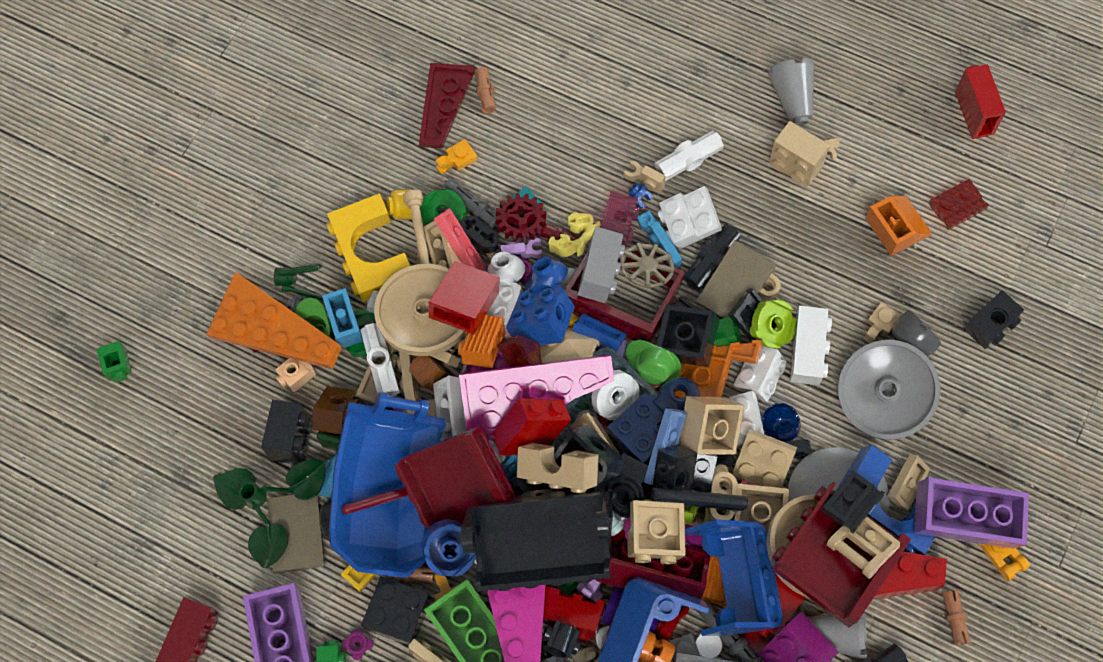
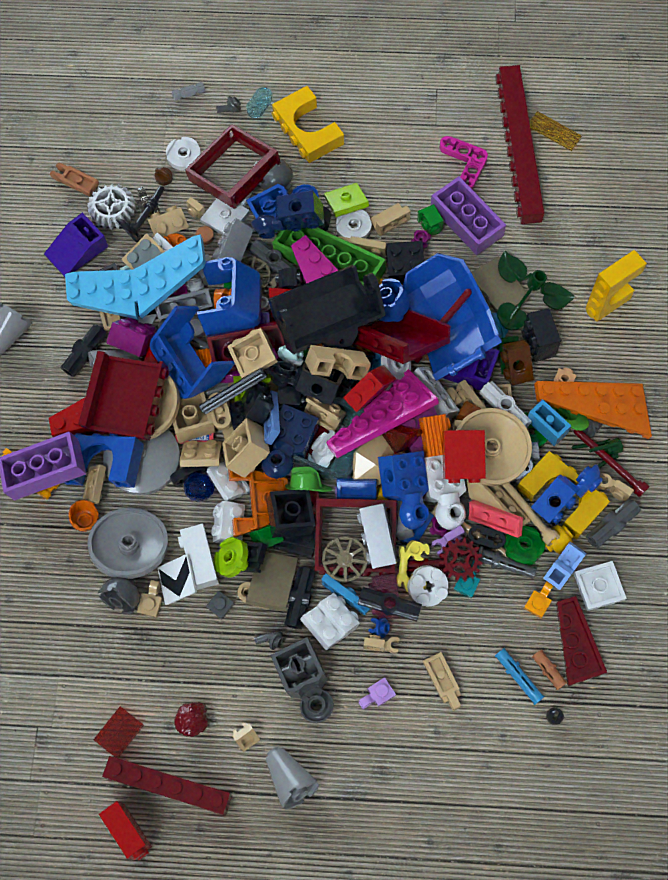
camera: 155 degrees right, 0 degrees up
(167, 438) = (612, 285): none -> yellow arch
(284, 223) = (638, 486): none -> dark red piece
(308, 227) = (617, 488): none -> tan plate
(334, 197) = (613, 523): none -> dark grey piece
(375, 233) = (567, 492): none -> blue brick
(388, 144) = (599, 585): none -> white plate
(417, 173) = (565, 565): none -> light blue brick
(505, 53) = (550, 714): none -> black hinge
(524, 116) = (519, 676): none -> dark azure pin
(576, 205) = (418, 580): none -> white plate
(597, 121) = (443, 680): none -> tan hinge
(631, 205) = (403, 608): none -> black piece
(668, 136) = (379, 693): none -> lavender plate
(689, 155) = (354, 679): white piece -> none
(742, 171) = (304, 679): none -> dark grey brick
(757, 226) = (275, 639): none -> dark grey plate
(798, 154) = (263, 710): tan brick -> none
(803, 288) = (220, 605): none -> dark grey plate
(843, 327) = (177, 579): none -> white piece
(853, 502) = (125, 429): black plate -> none
(869, 538) = (106, 410): tan plate -> none
(876, 181) = (191, 719): none -> dark red hair
(897, 223) = (161, 688): orange slope -> none
(933, 446) = (83, 515): none -> orange hair
(956, 617) = (35, 410): nougat pin -> none
(957, 152) = (167, 785): none -> dark red arch
(1001, 308) = (65, 647): black brick -> none

